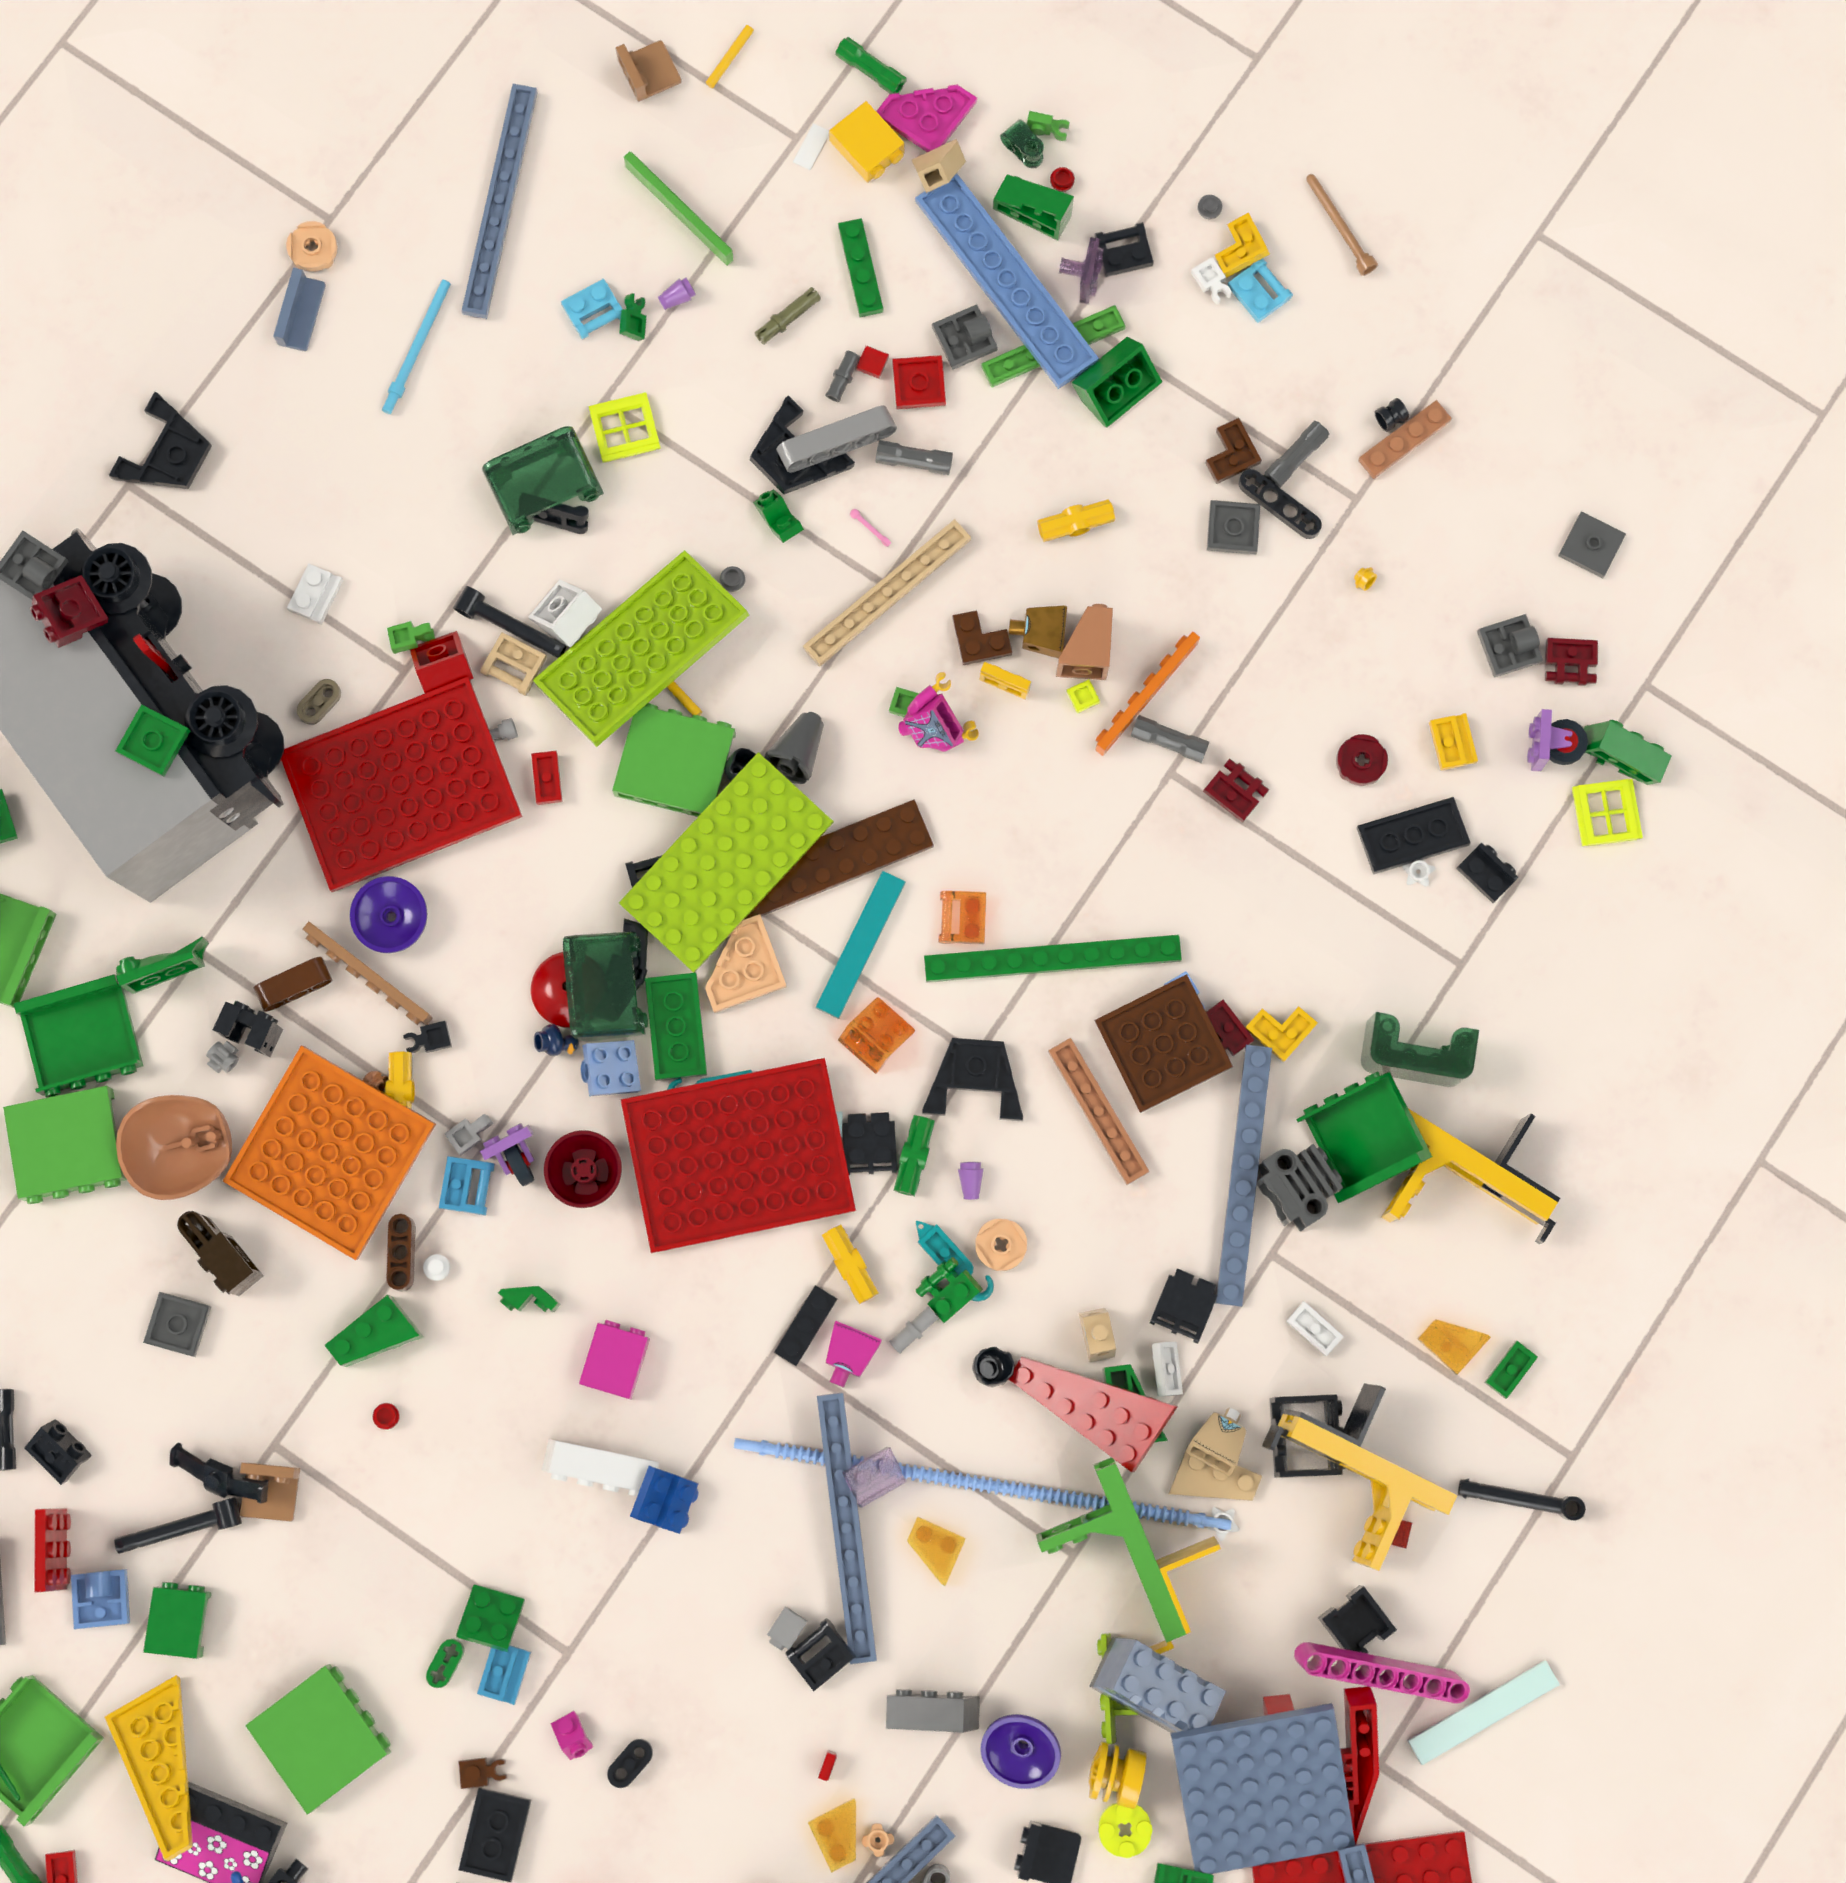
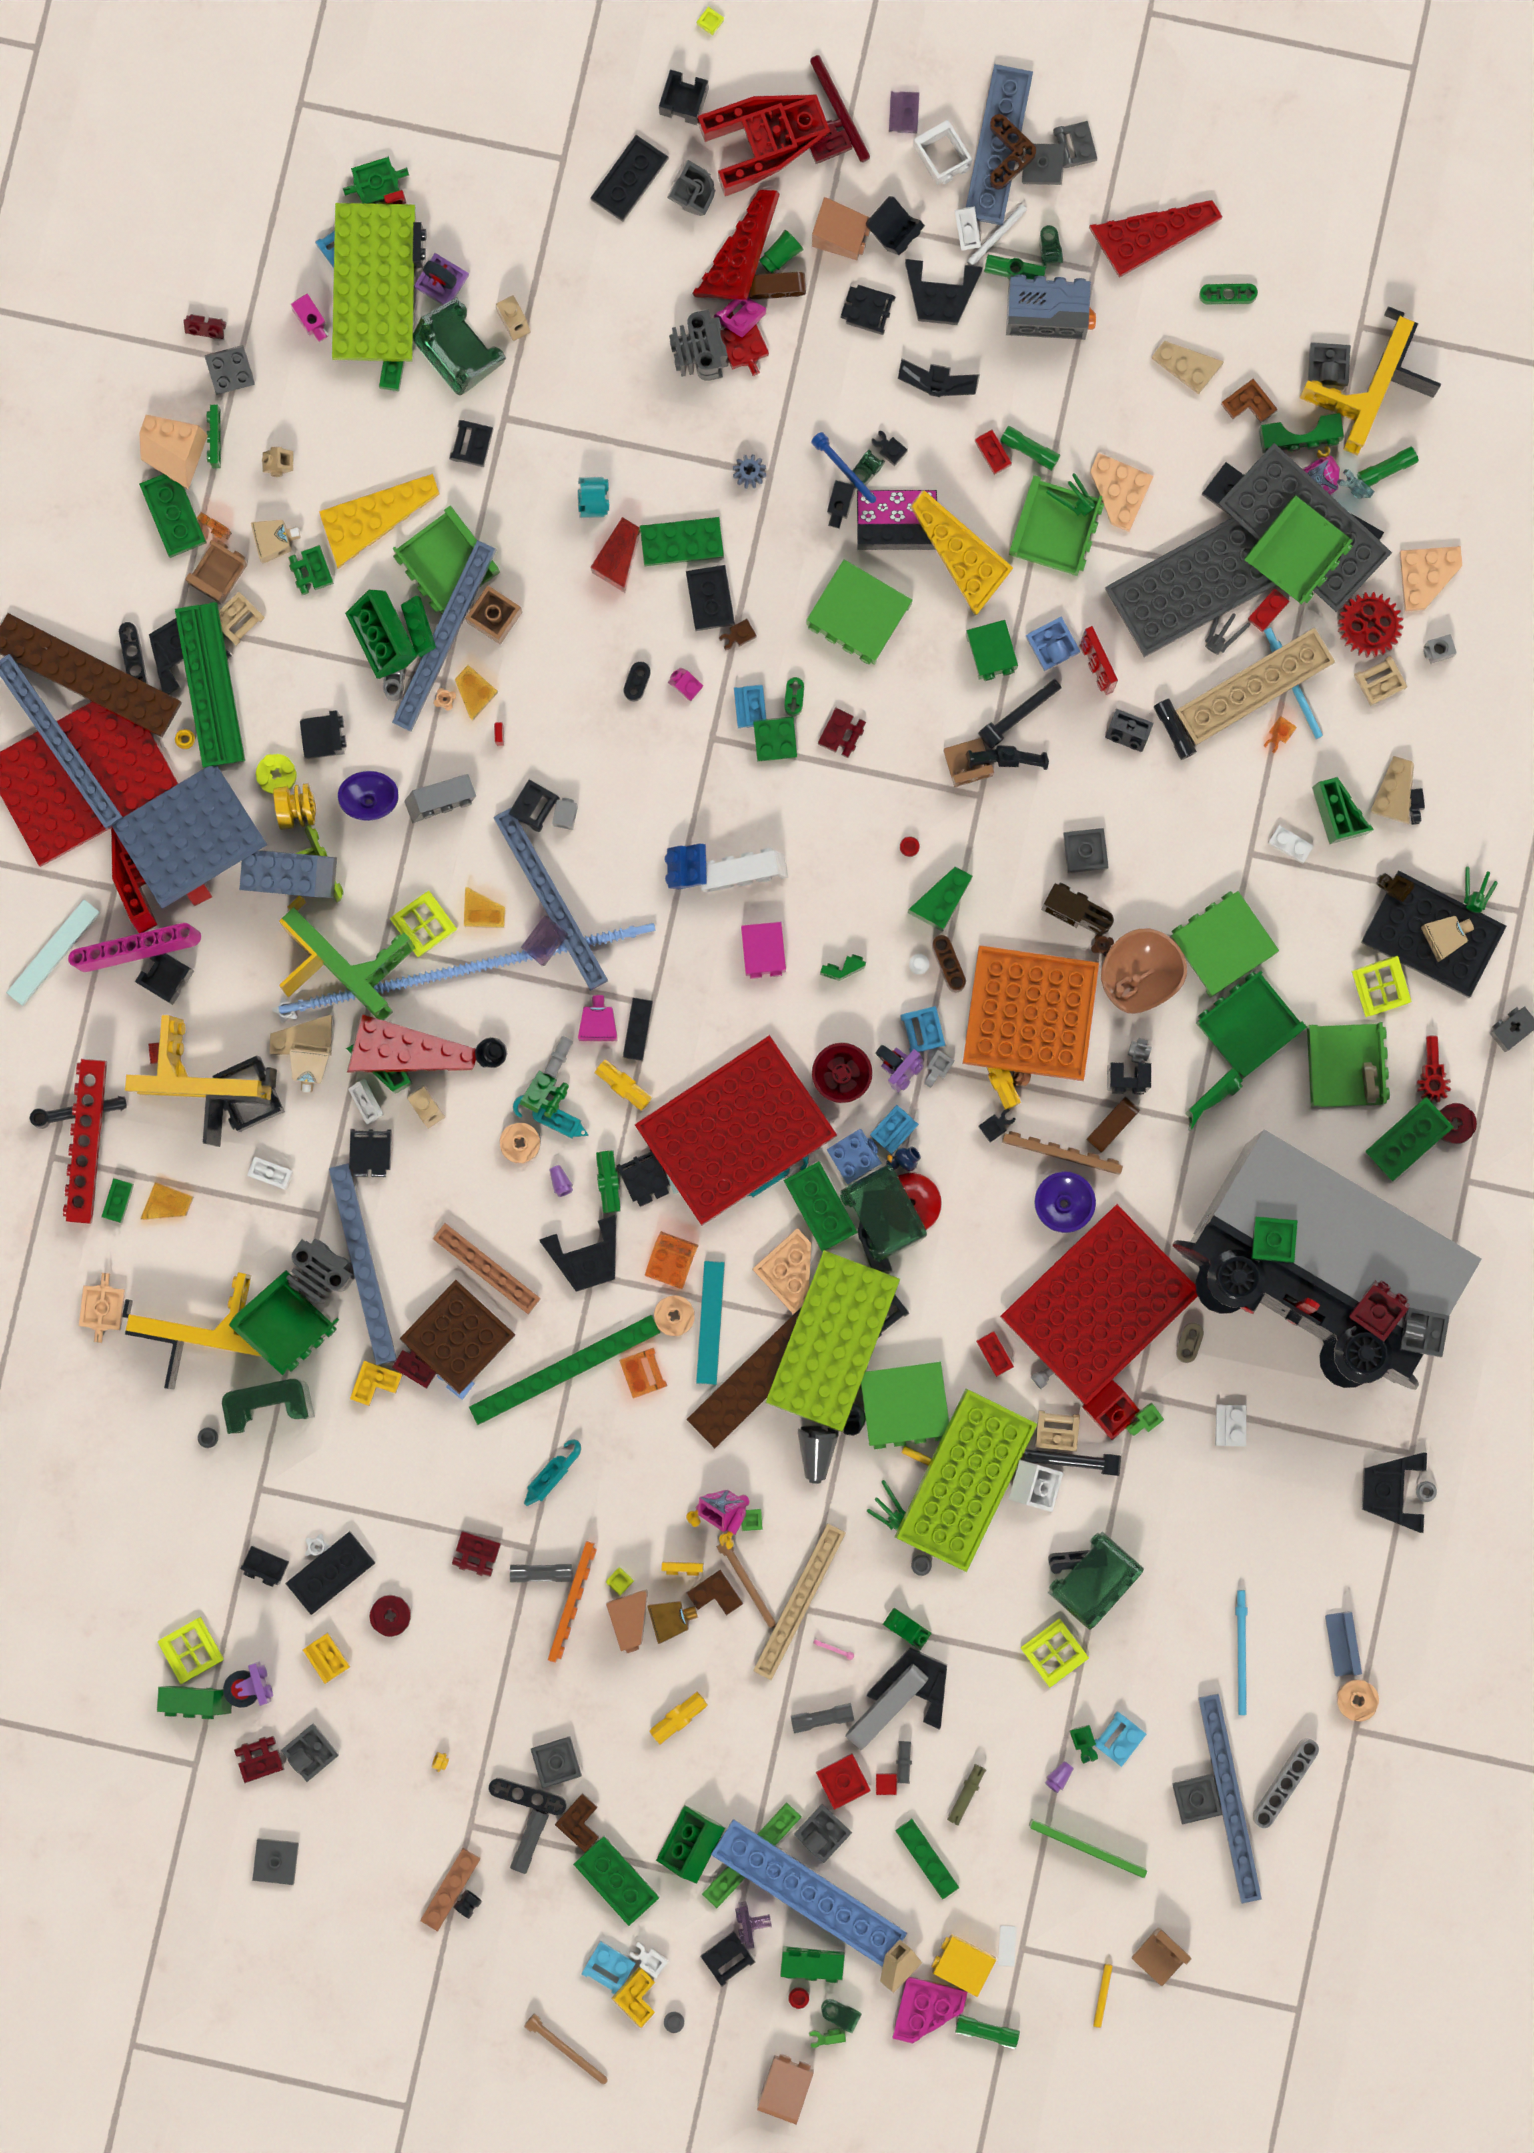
camera: 165 degrees right, 5 degrees up
(129, 429) = (1432, 1494): none -> light grey plate
(202, 1202) = (1099, 939): none -> reddish brown plate
(412, 1599) = (836, 729): none -> dark red plate
(435, 180) = (1286, 1772): none -> light grey beam
(536, 213) = (1197, 1799): none -> dark grey plate
(551, 1081) = (894, 1129): none -> dark azure plate
(740, 639) = (895, 1518): none -> green plant
(897, 983) = (663, 1318): none -> light nougat plate
(938, 636) = (747, 1583): none -> medium nougat piece
(990, 1566) = (437, 912): none -> neon yellow piece
(1114, 843) = (551, 1474): none -> teal plate
(1116, 88) = (785, 2089): none -> nougat slope
(1215, 375) = (616, 1880): none -> green plate
(1481, 1538) = (85, 1213): none -> red brick
(1501, 1045) = (208, 1437): none -> dark grey plate
(1574, 1248) = (101, 1307): none -> light nougat plate

